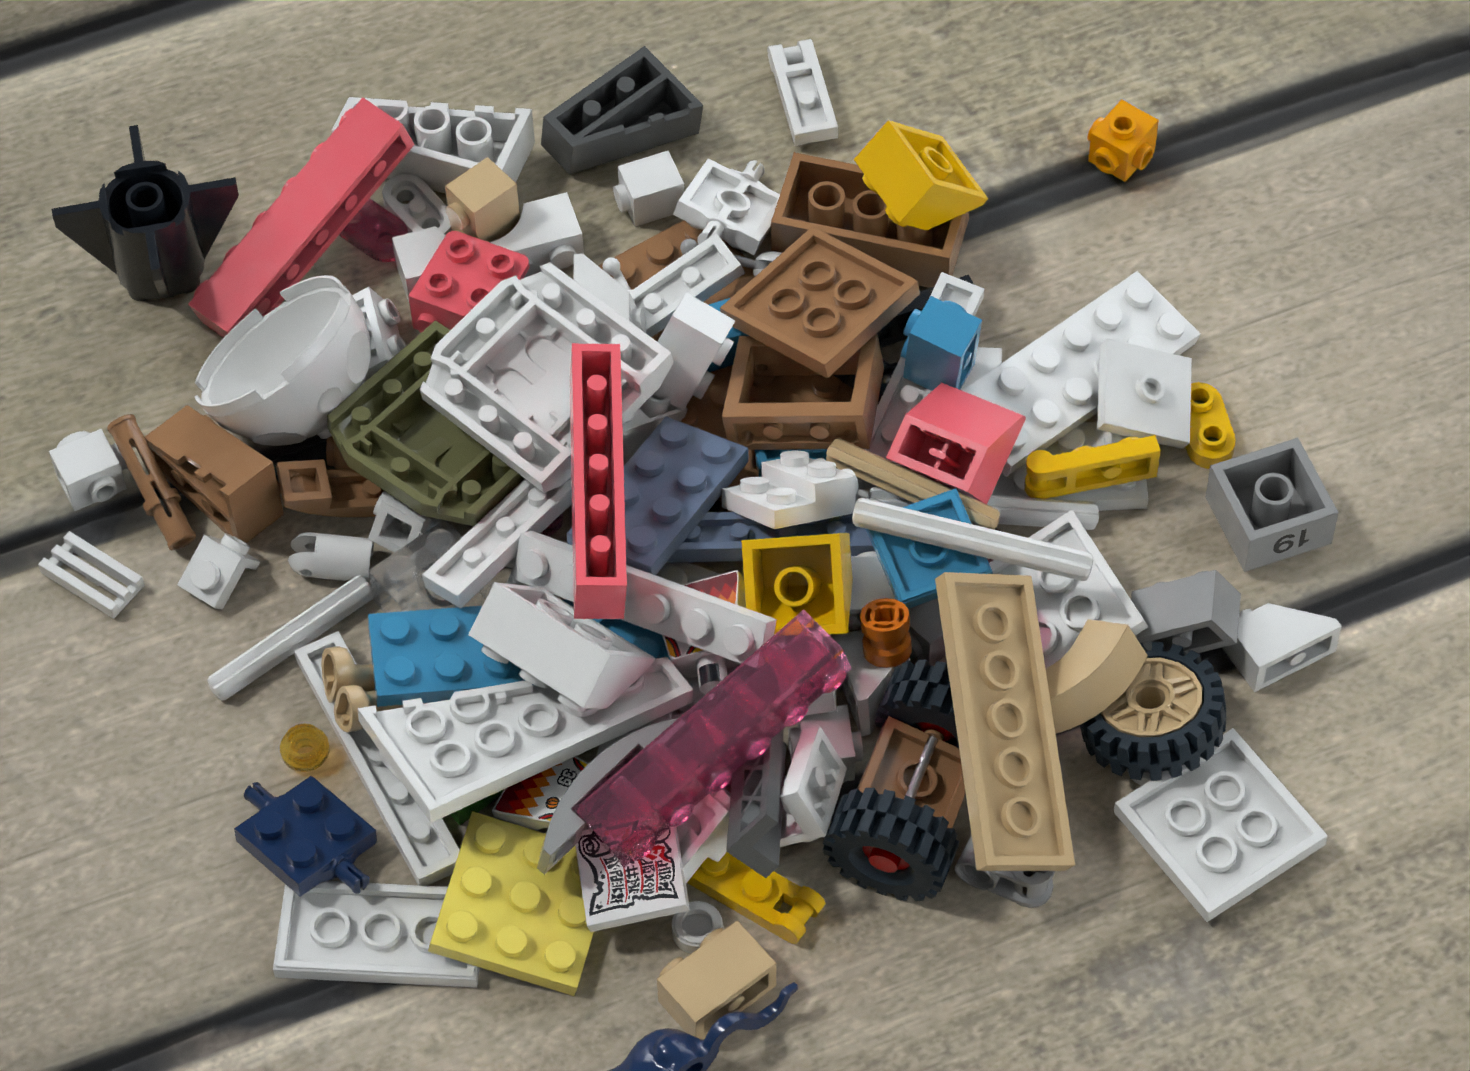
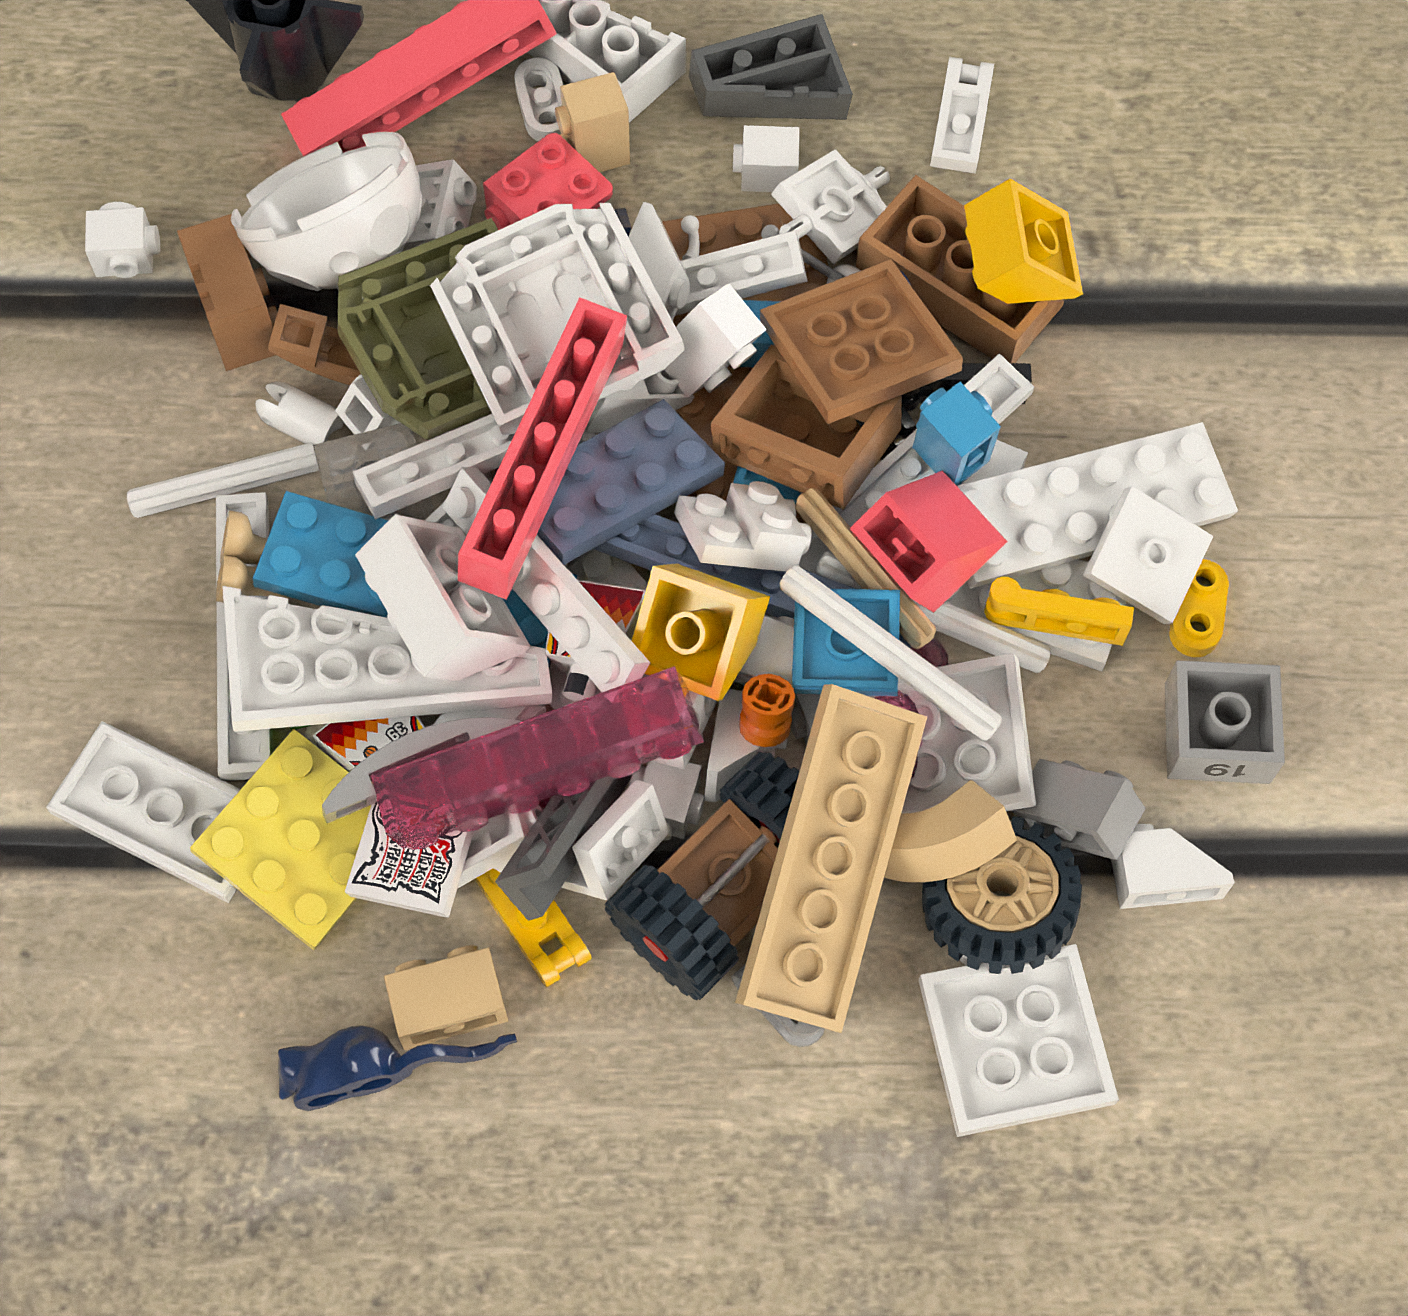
camera: 20 degrees right, 10 degrees up
(75, 544) = (61, 317): white tile -> none
(174, 528) = (166, 275): medium nougat pin -> none
(217, 569) = (189, 384): white bracket -> none
(304, 736) = (177, 584): clear yellow plate -> none
(306, 836) = (138, 687): dark blue plate -> none
(373, 230) = (494, 104): clear pink plate -> none
(543, 234) = (640, 172): white arch -> none
(694, 925) = (461, 929): white tile -> none
(1123, 140) = (1251, 281): light orange brick -> none

